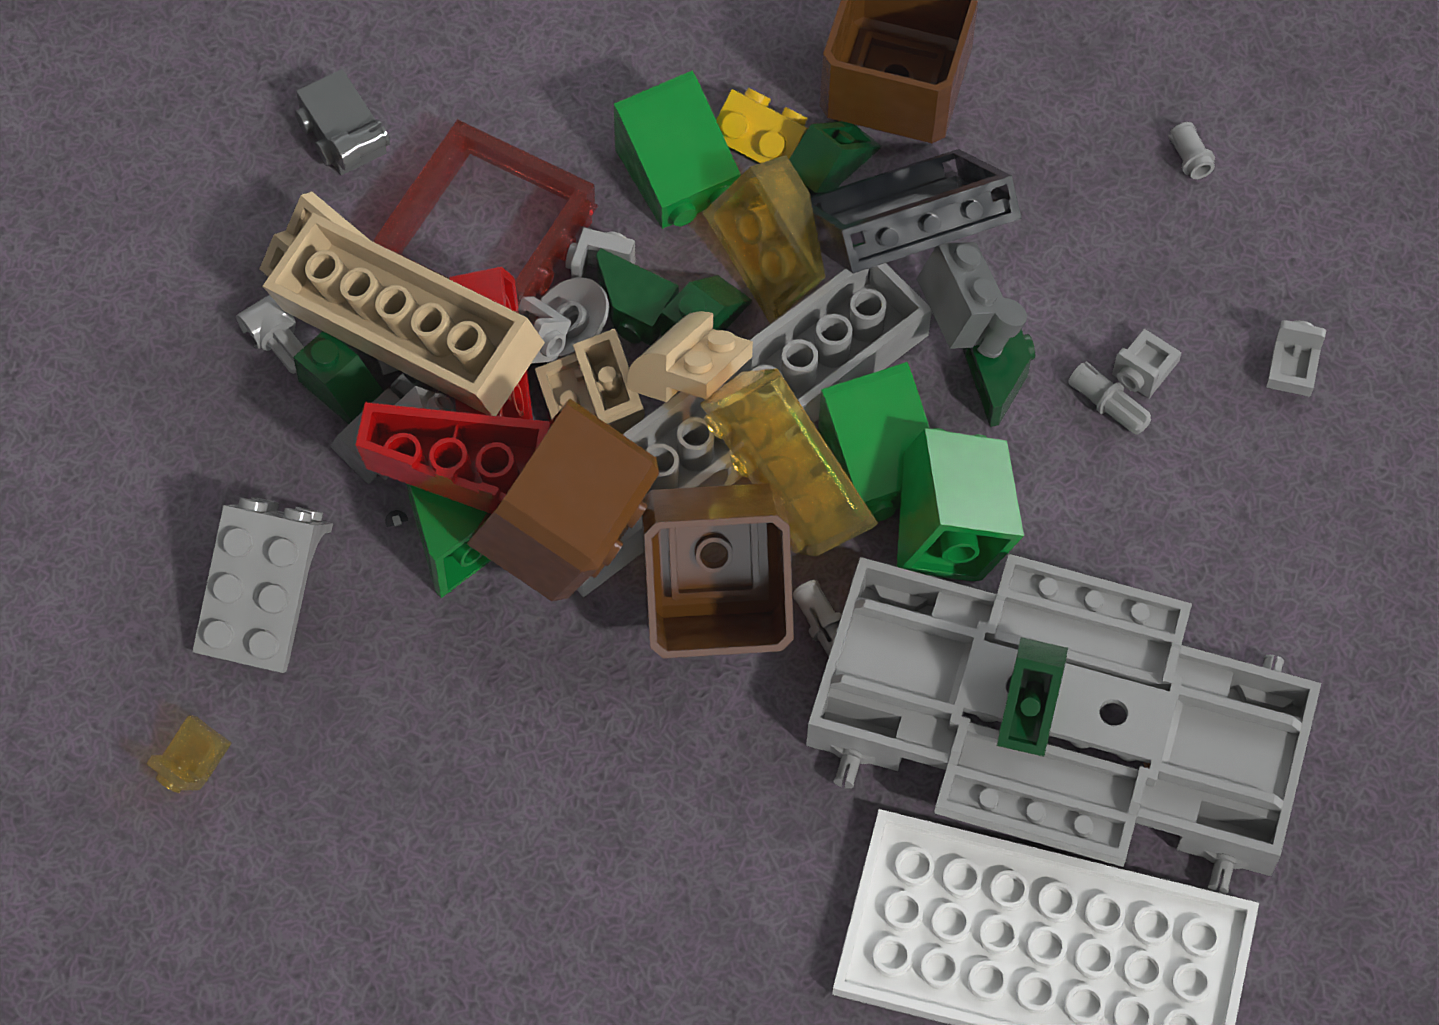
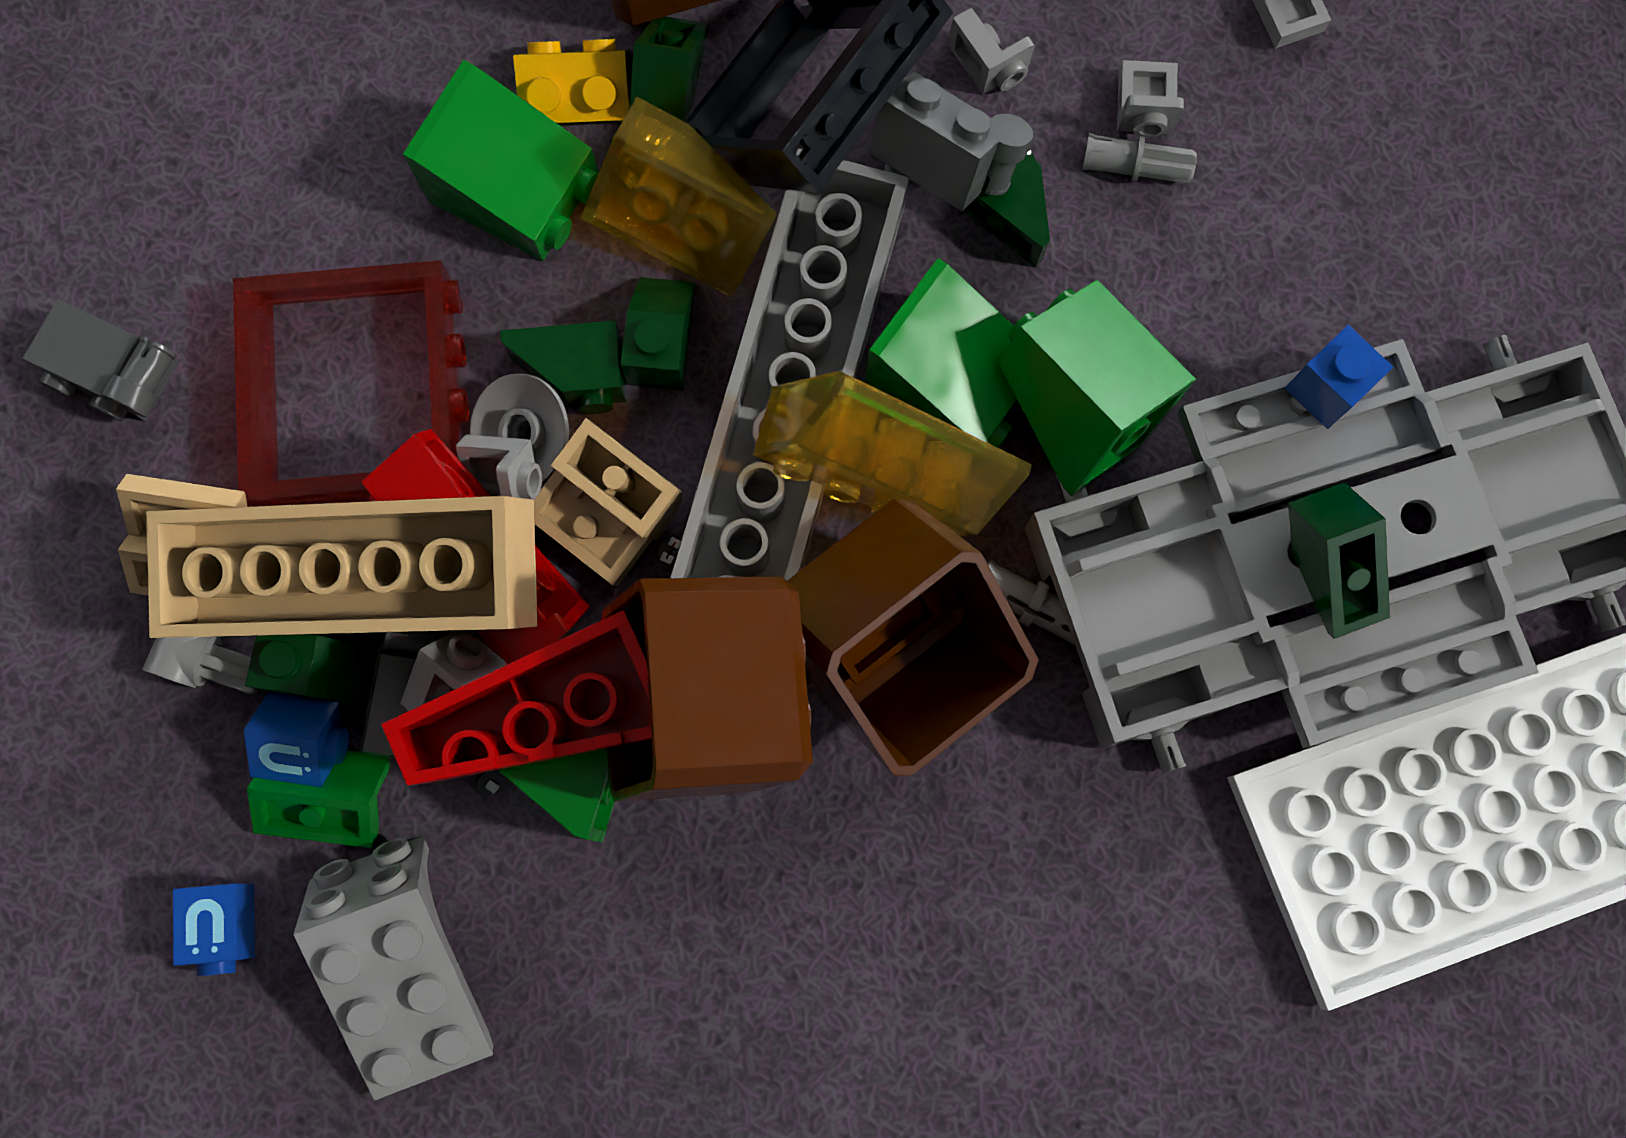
camera: 35 degrees left, 15 degrees up
(172, 489) = (213, 927): none -> blue brick
(286, 456) = (336, 813): none -> green panel
(299, 410) = (295, 739): none -> blue brick
(590, 242) = (485, 332): light grey bracket -> none
(689, 360) = (700, 407): tan brick -> none
(1051, 275) = (981, 55): none -> light grey bracket
(1117, 589) = (1338, 377): none -> blue brick

